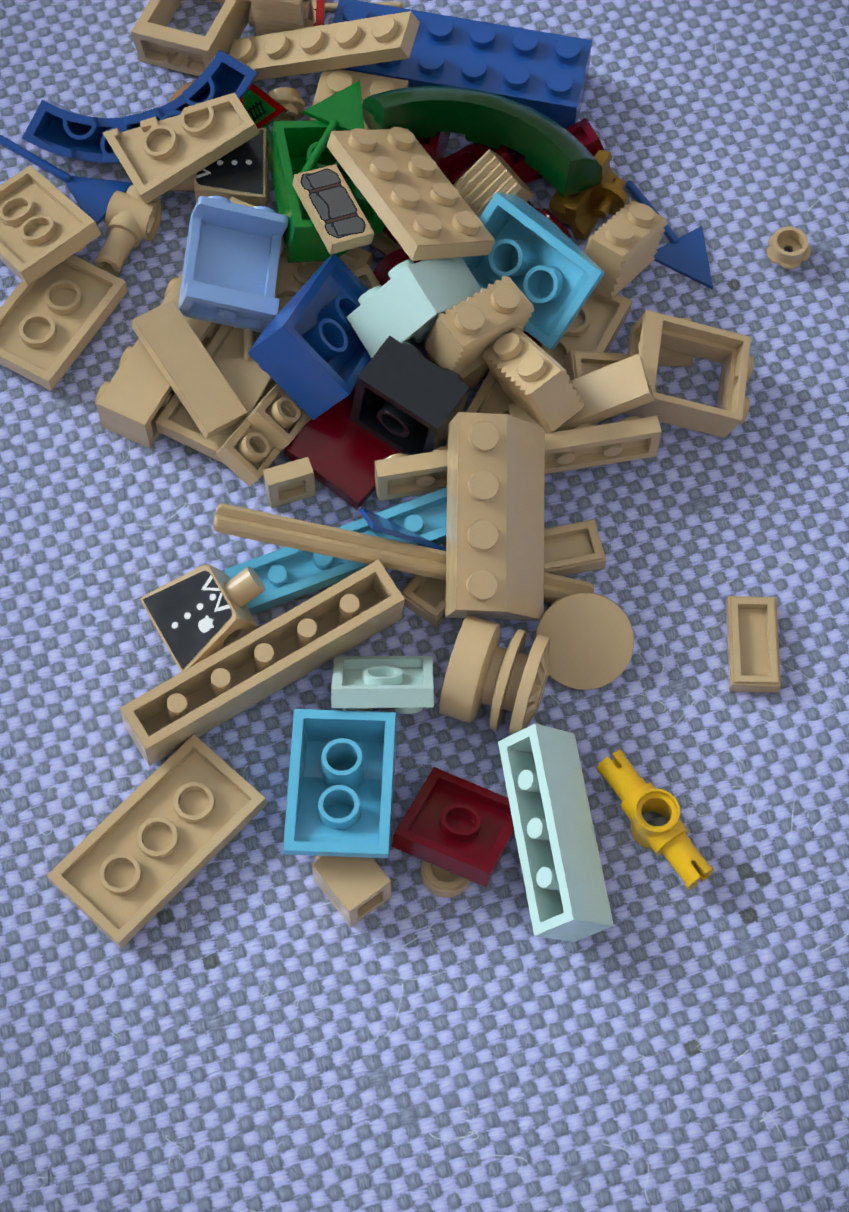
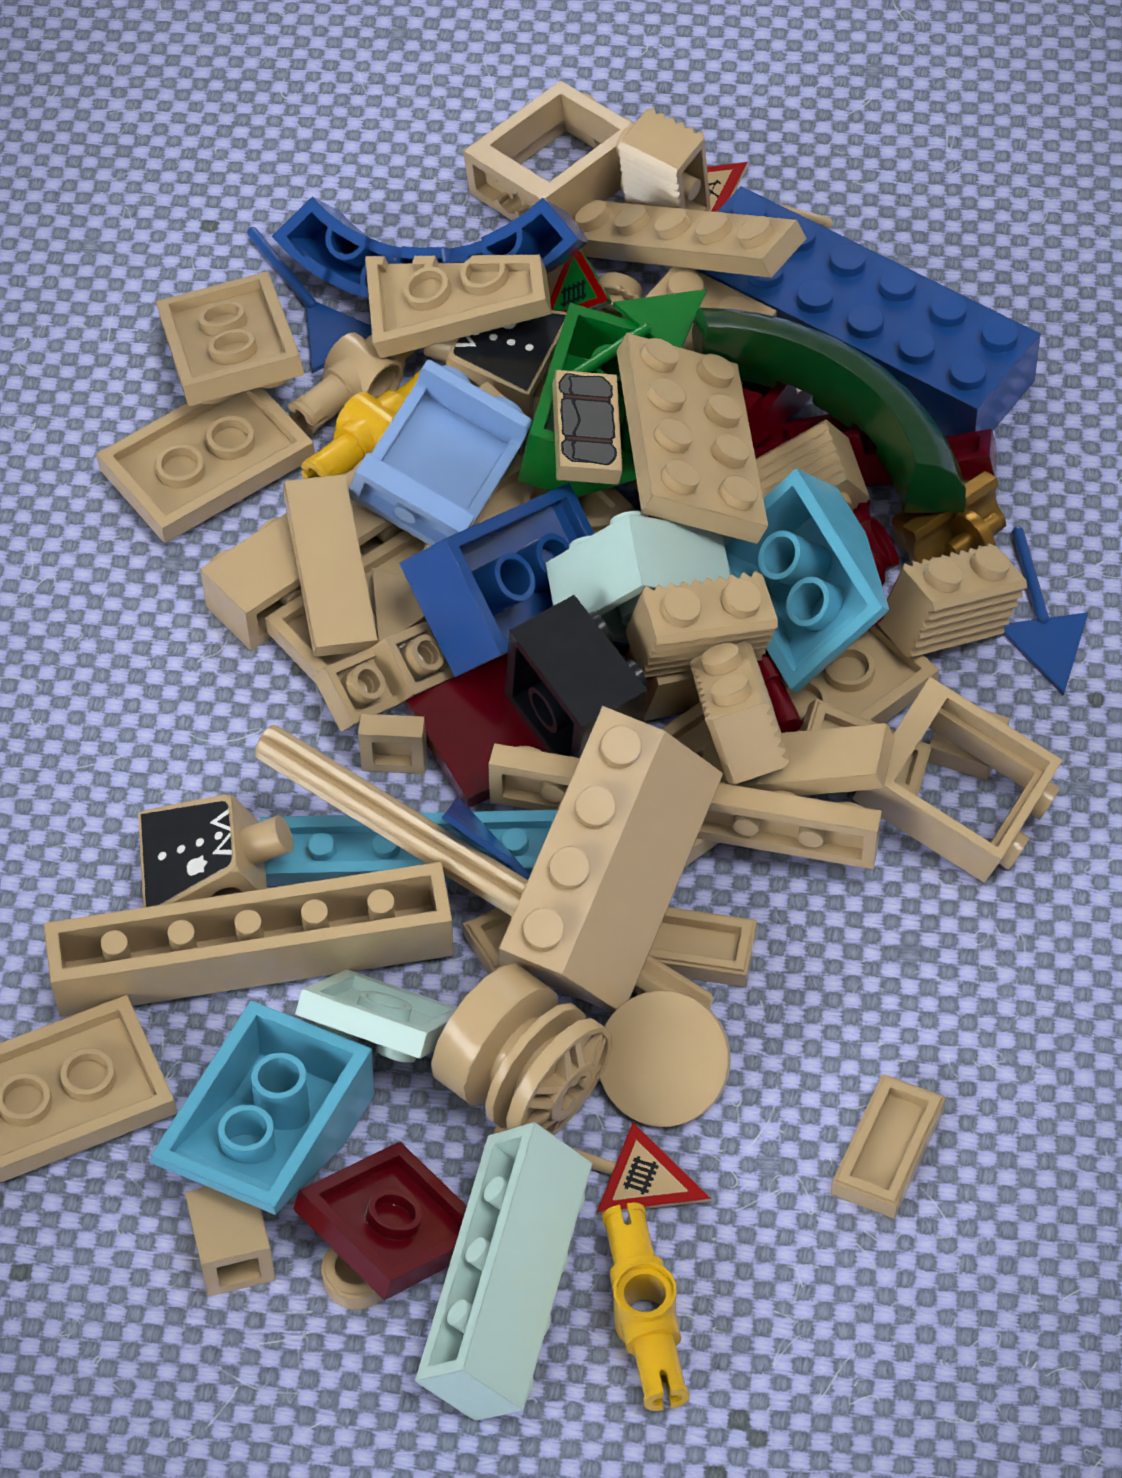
camera: 25 degrees right, 10 degrees down
(160, 258) = (357, 431): none -> yellow pin
(602, 728) = (642, 1176): none -> piece

